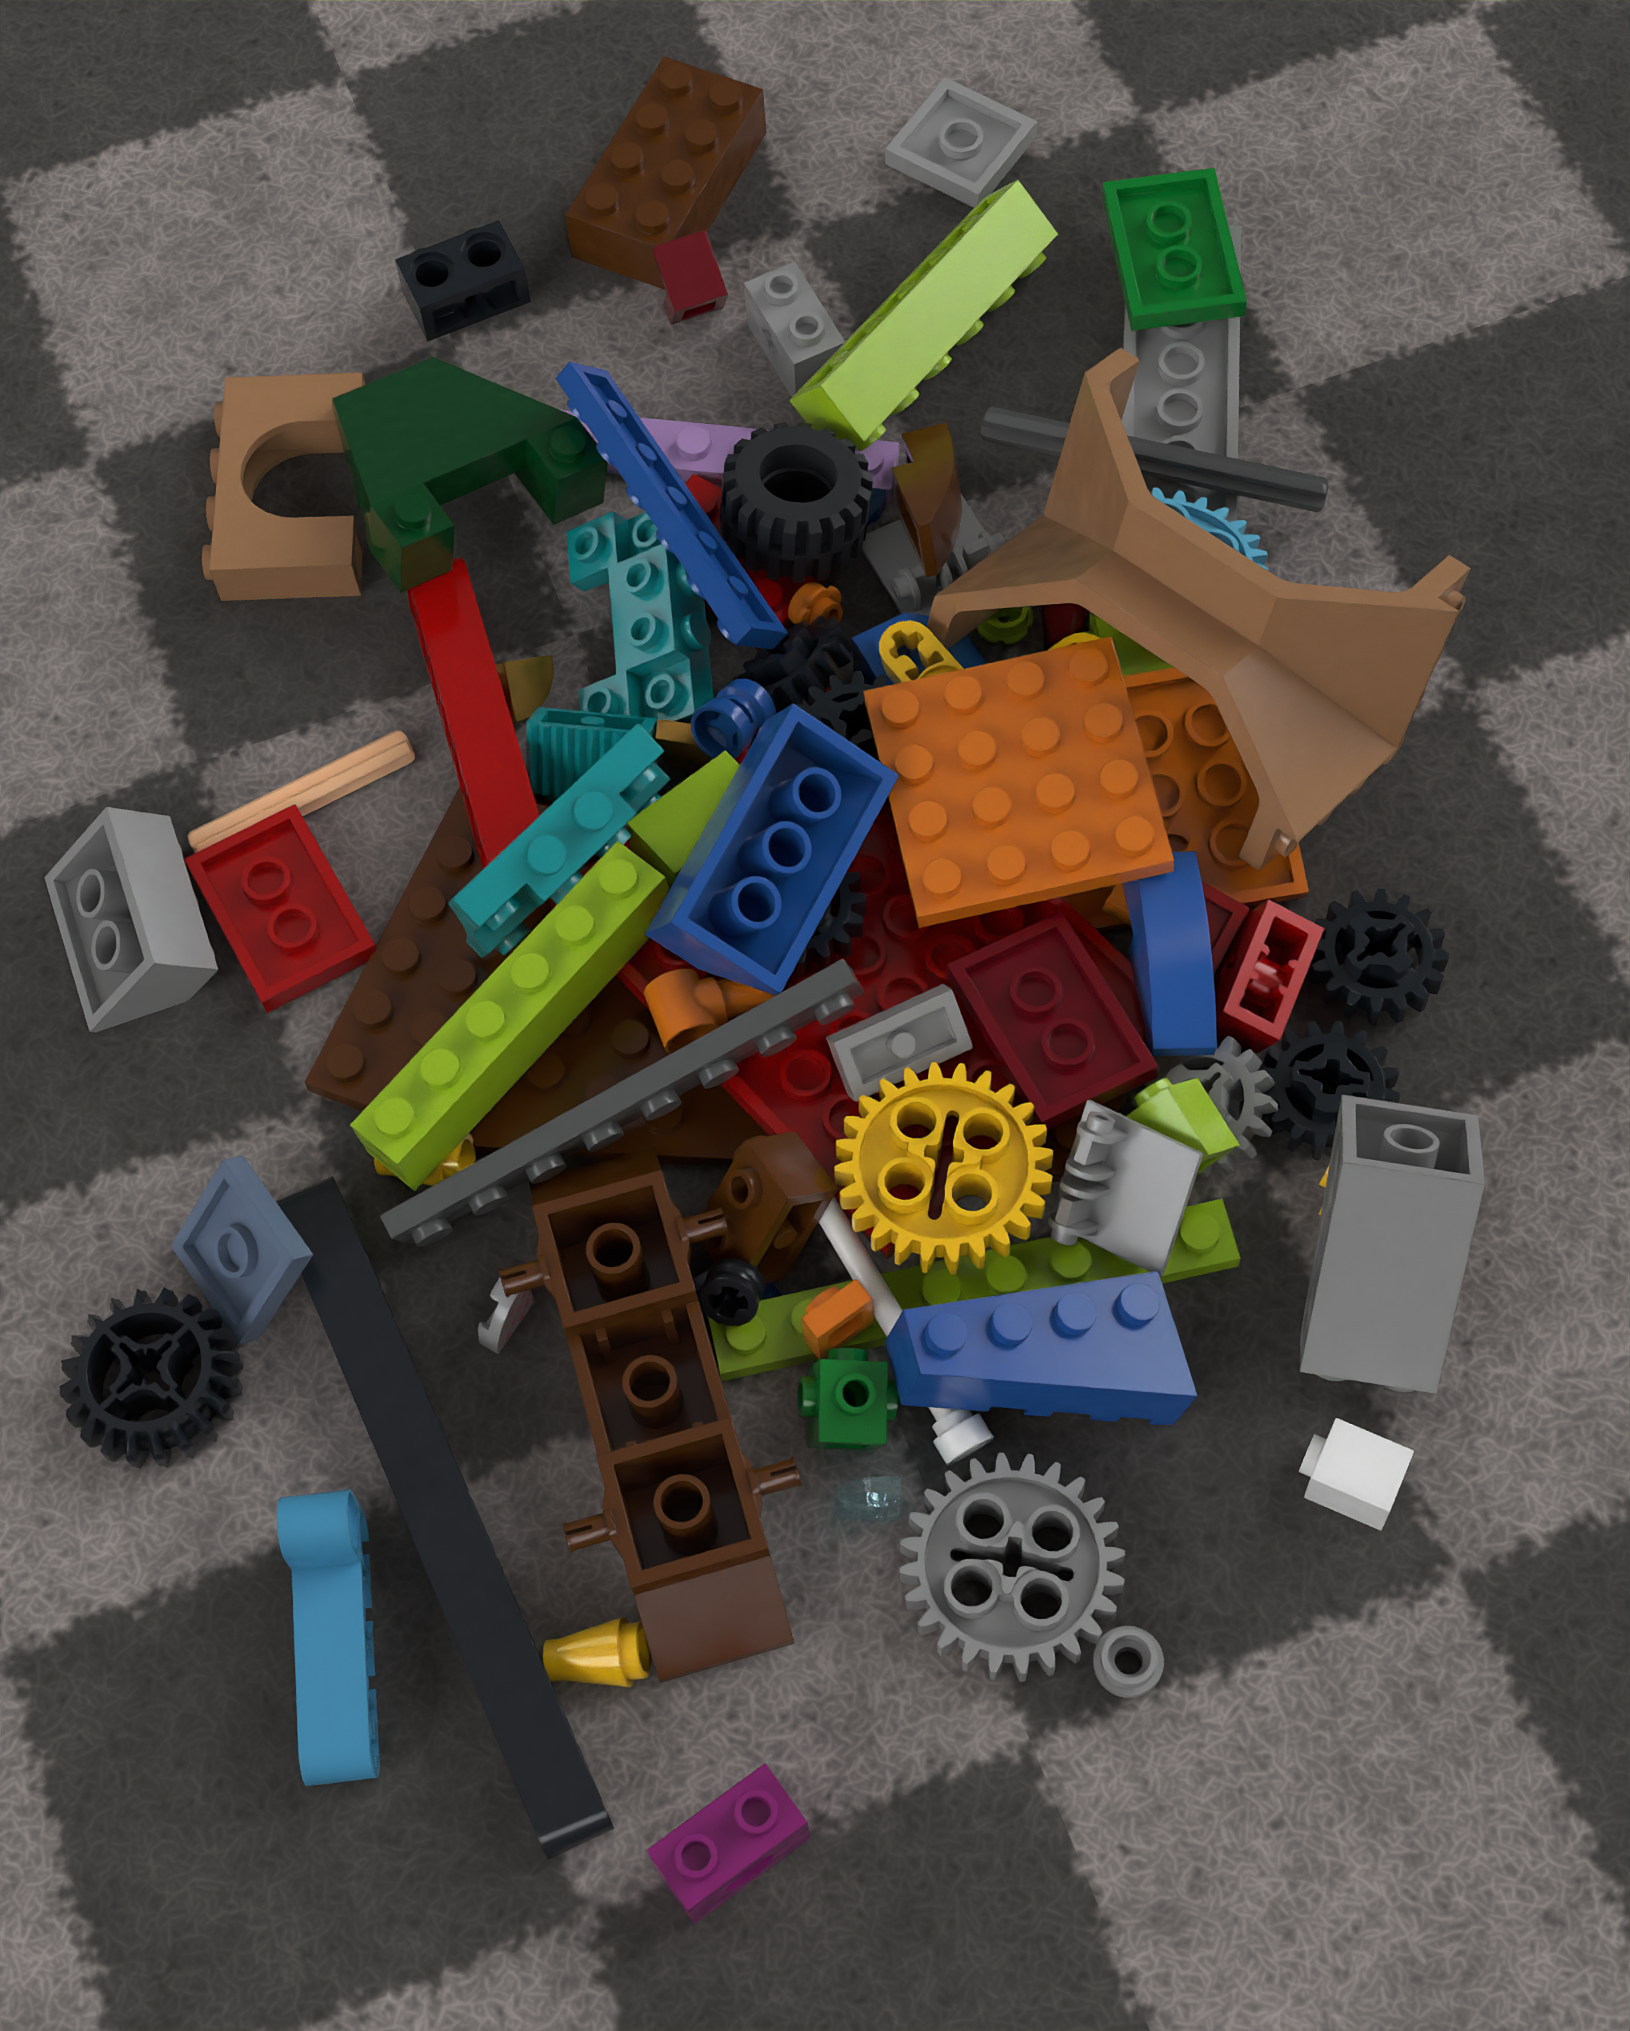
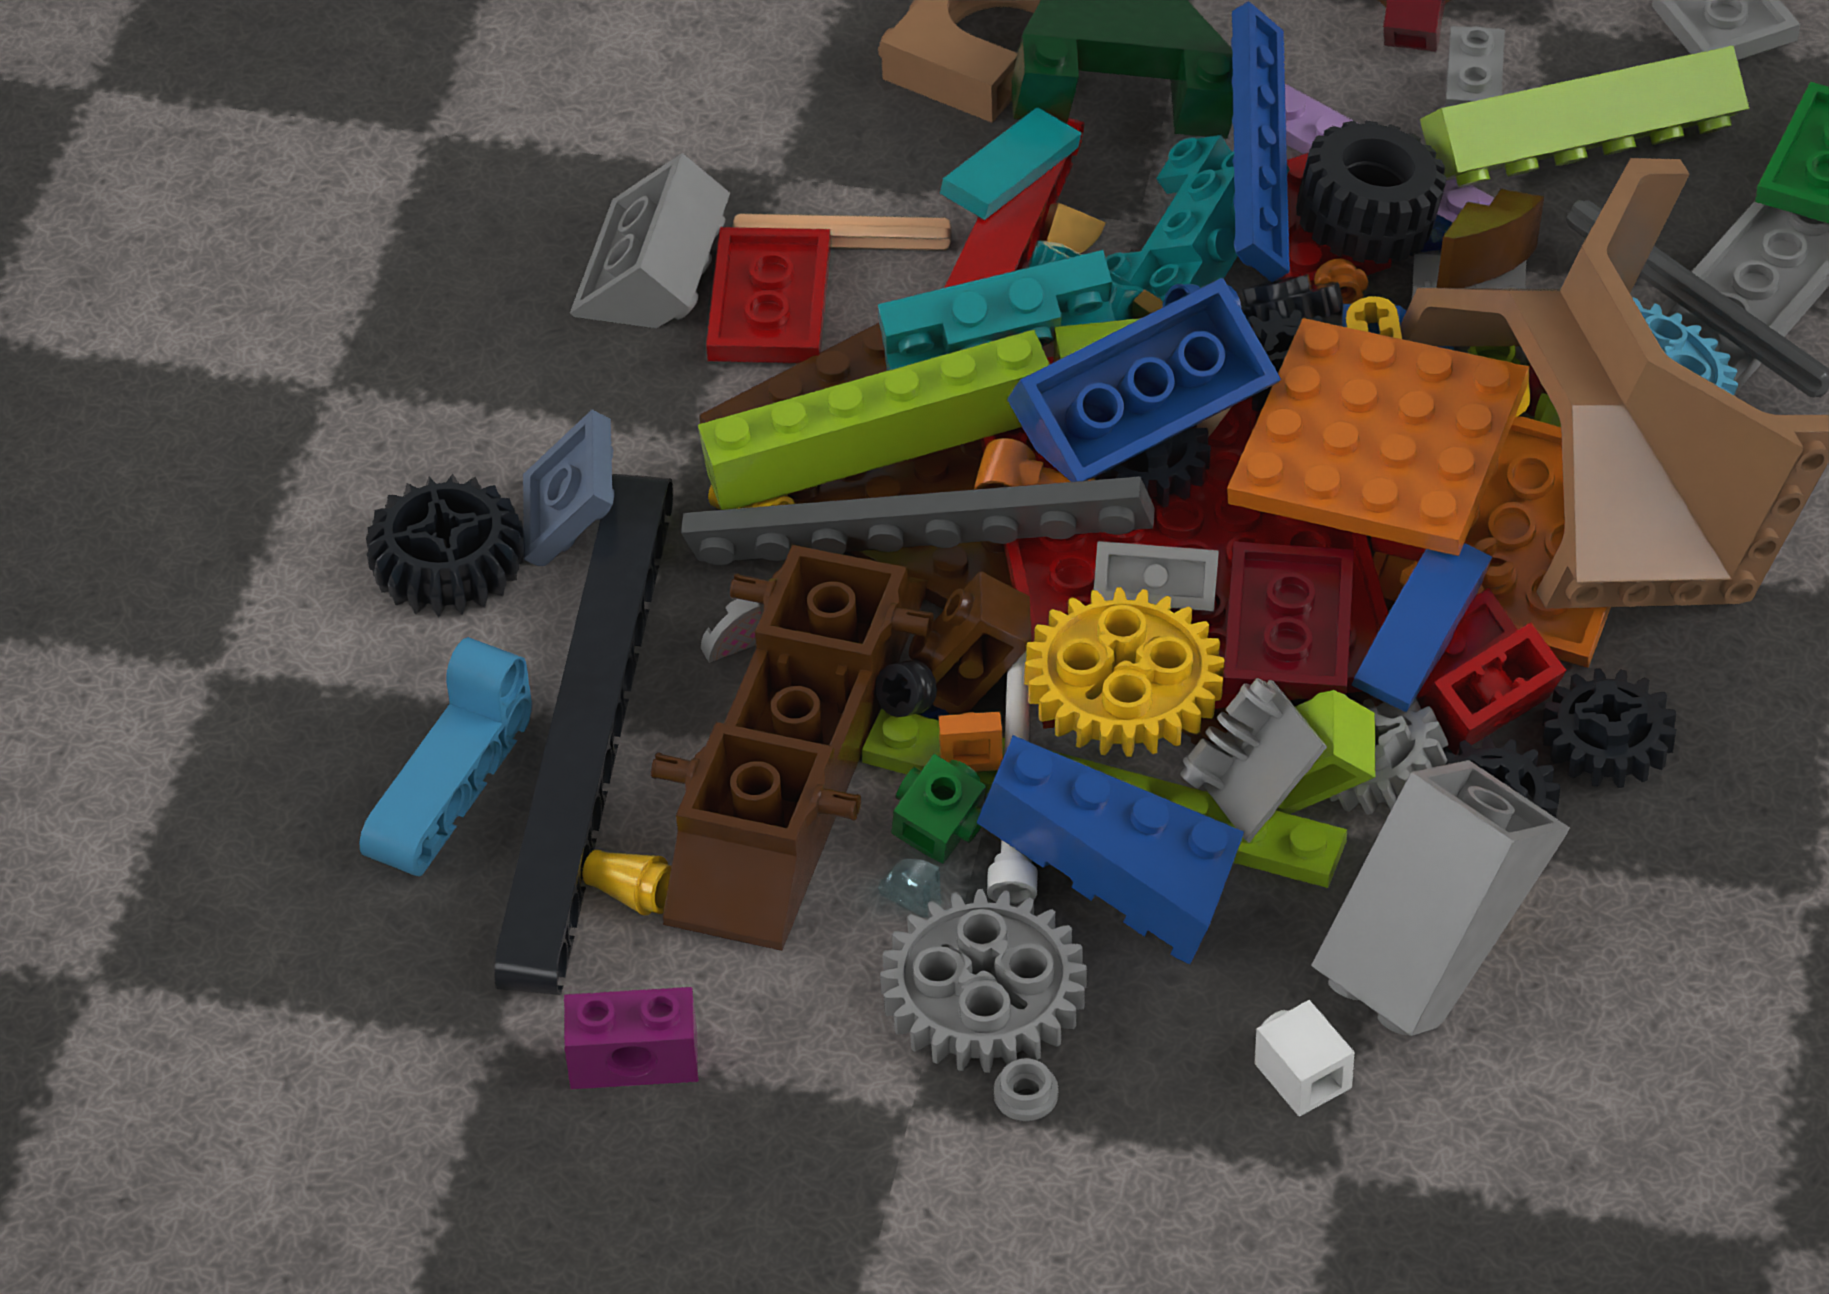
camera: 30 degrees right, 15 degrees down
(439, 649) = (1010, 163): none -> teal tile

